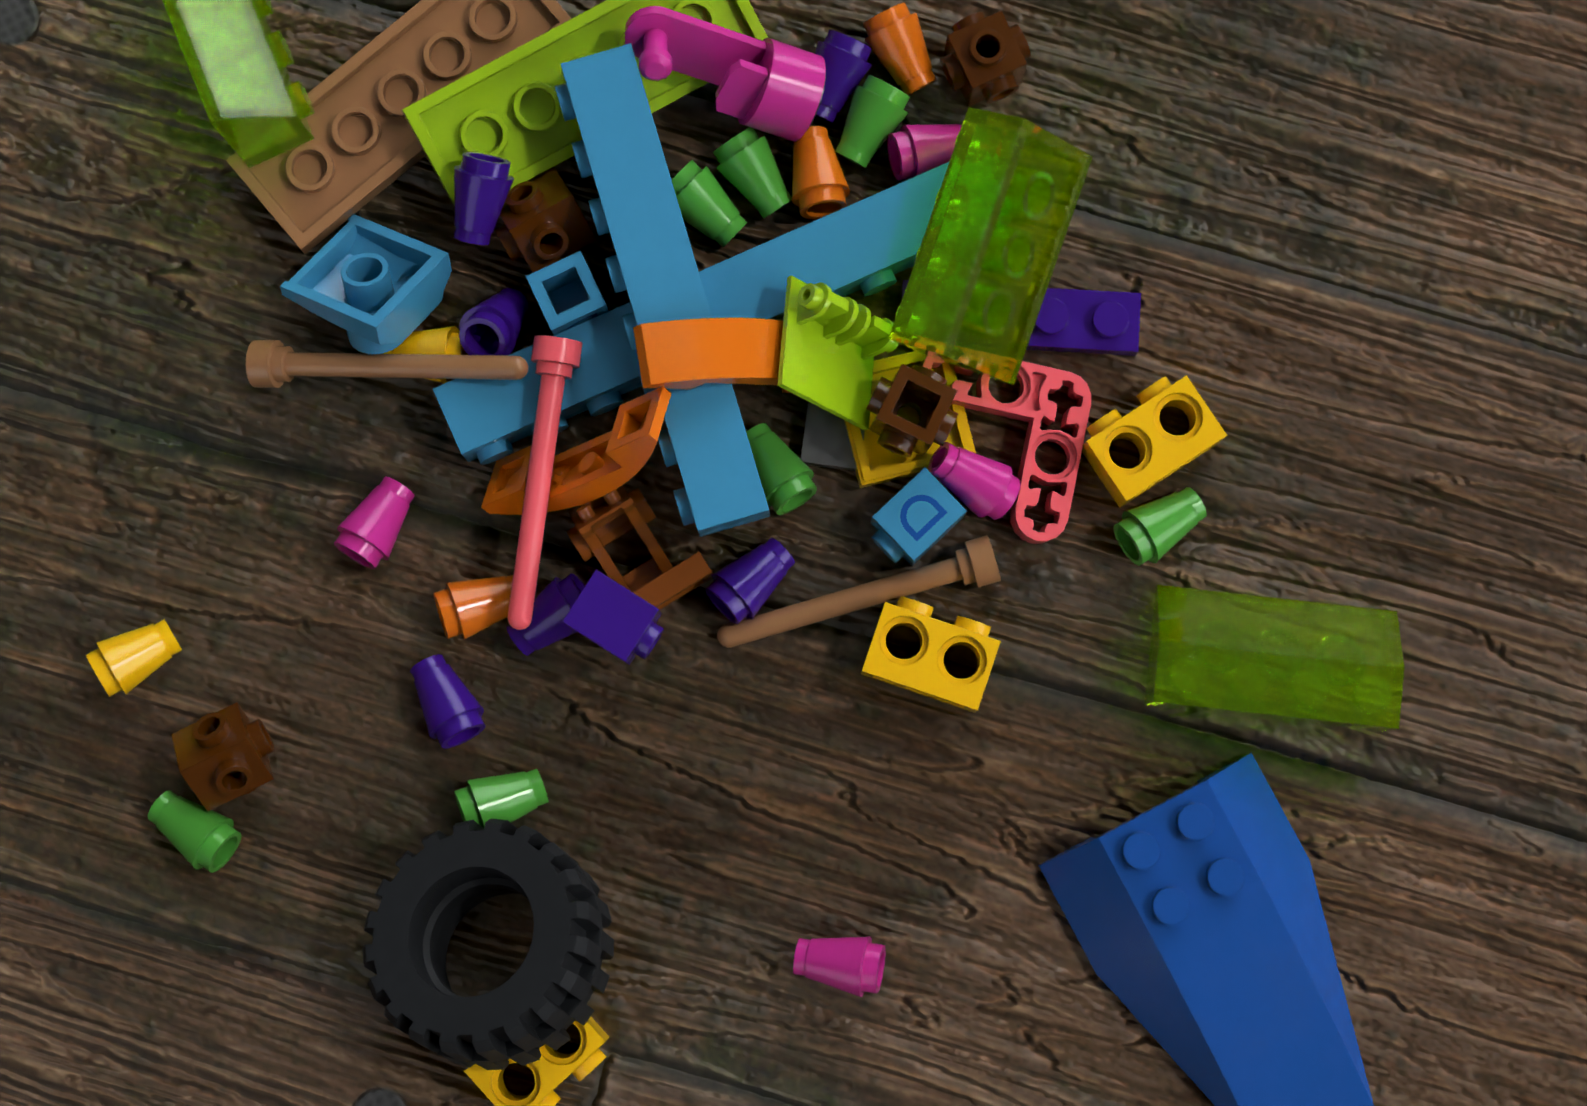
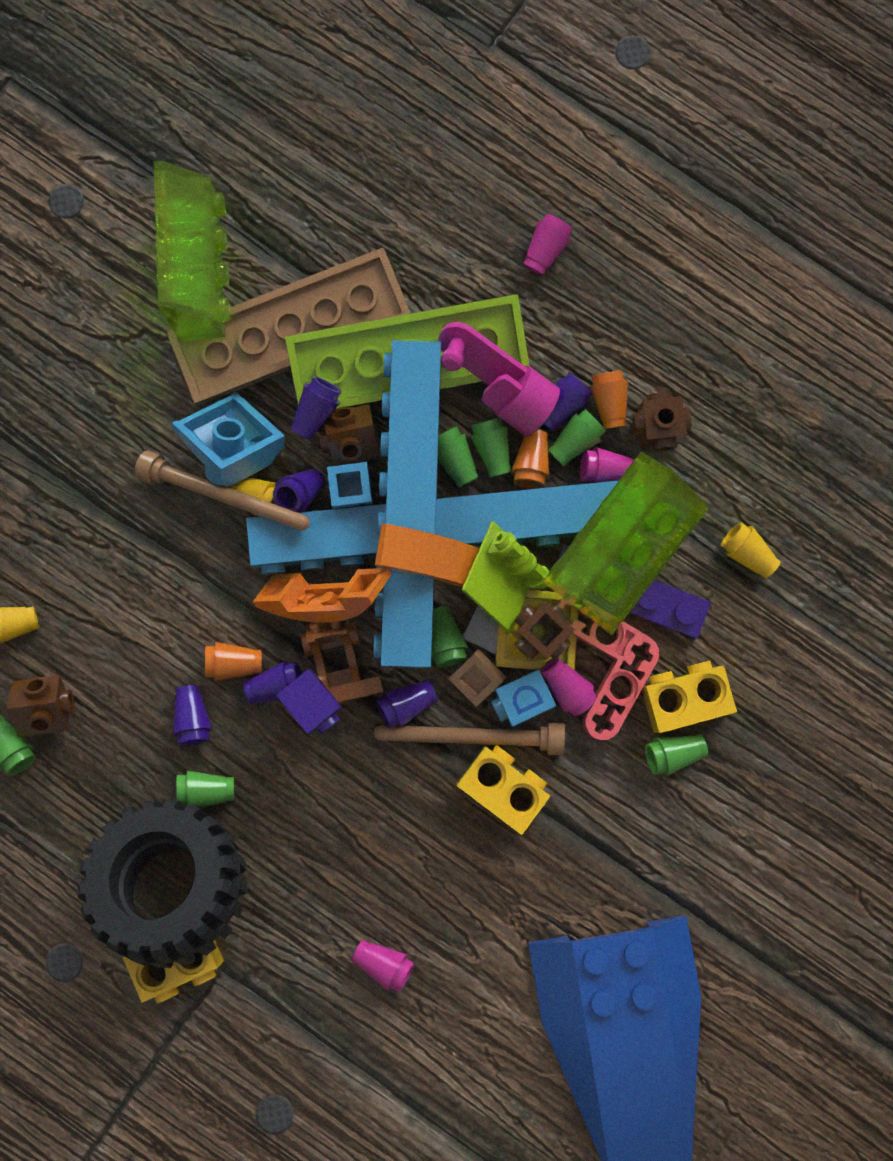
camera: 15 degrees right, 0 degrees up
(375, 523) = (184, 589): dark pink cone -> none
(555, 363) = (327, 528): coral piece -> none
(841, 510) = (477, 677): none -> medium nougat plate
(1172, 201) = (750, 550): none -> yellow cone
(1275, 658) = (721, 863): clear neon green slope -> none

